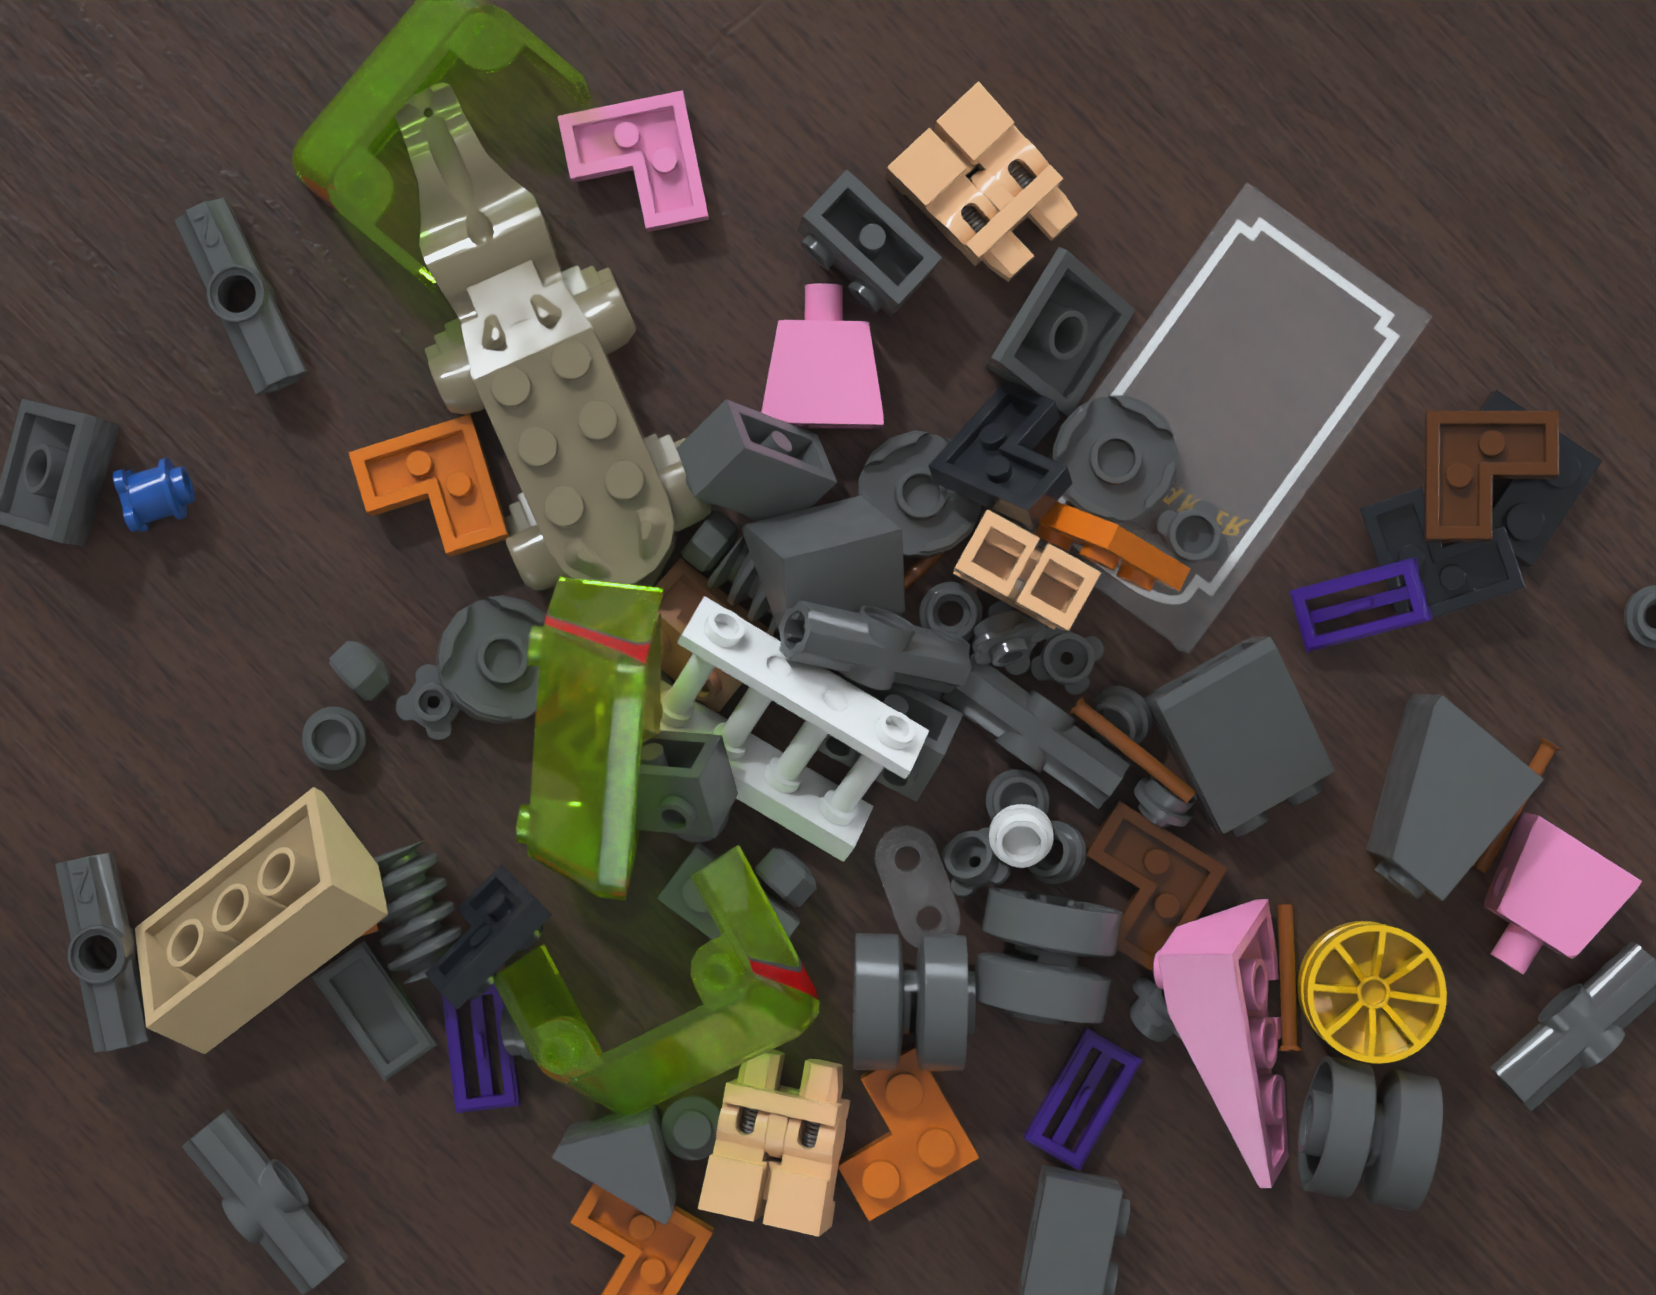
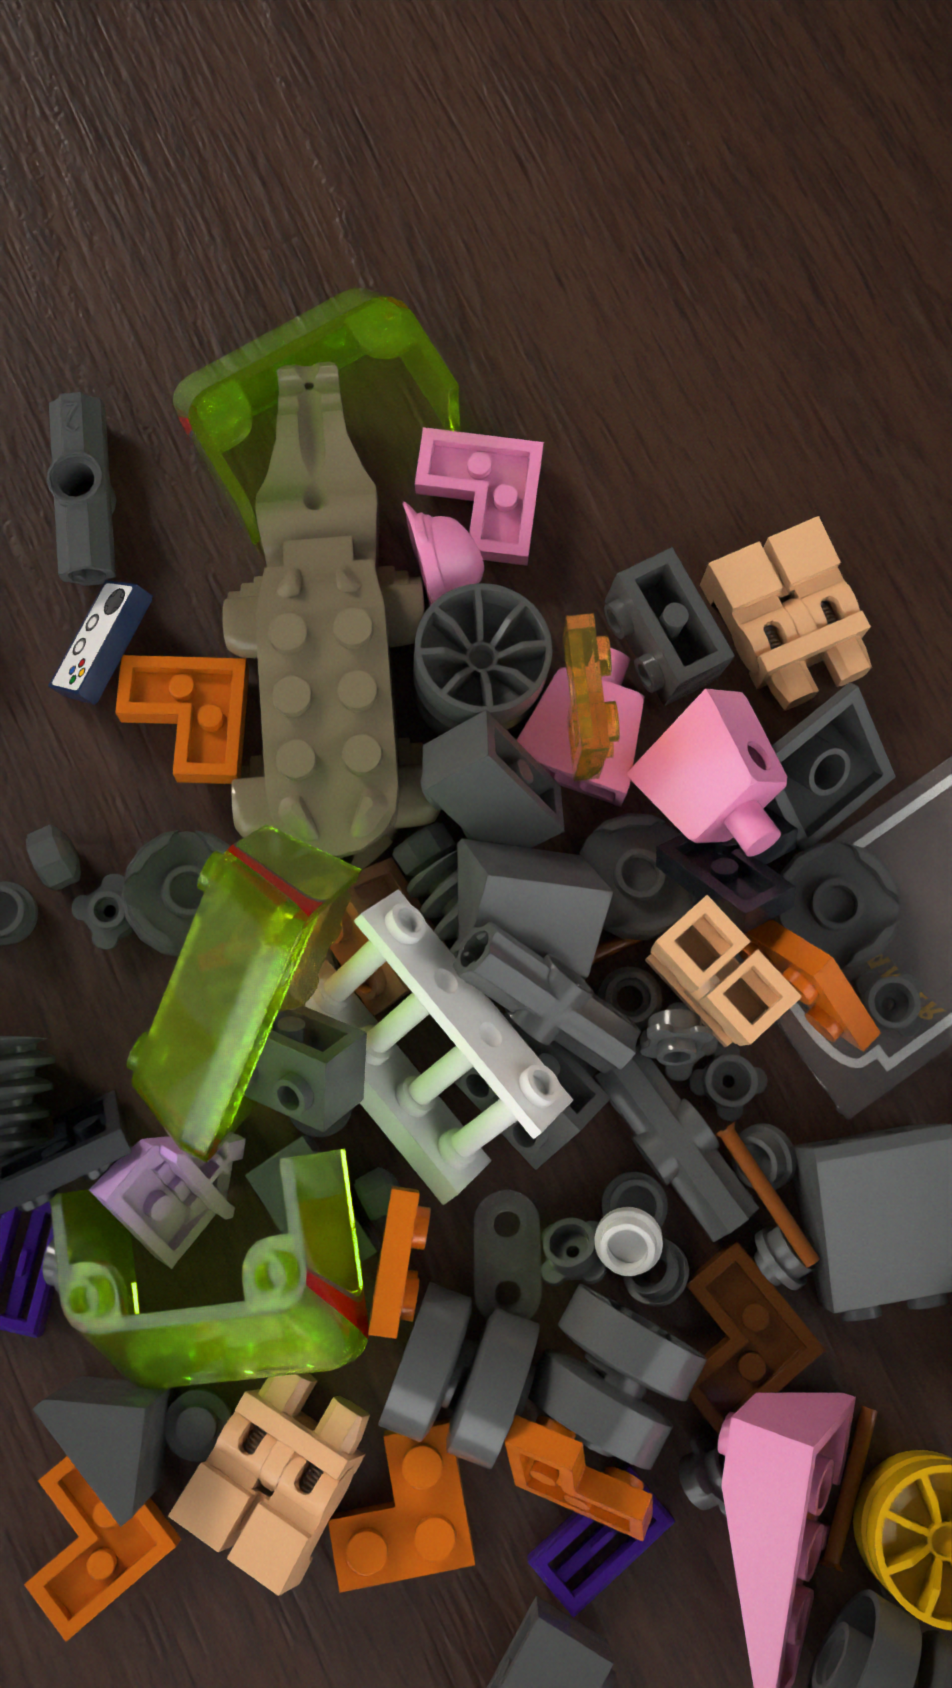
camera: 20 degrees right, 10 degrees down
(321, 444) = (101, 641): none -> tile
(593, 939) = (168, 1194): none -> slope
(630, 249) = (443, 553): none -> bright pink hat
(701, 343) = (480, 653): none -> dark grey wheel
(825, 947) = (395, 1285): none -> orange plate
(828, 380) = (590, 720): none -> clear yellow plate
(959, 382) = (715, 773): none -> bright pink torso
(1016, 1050) = (553, 1466): none -> orange plate

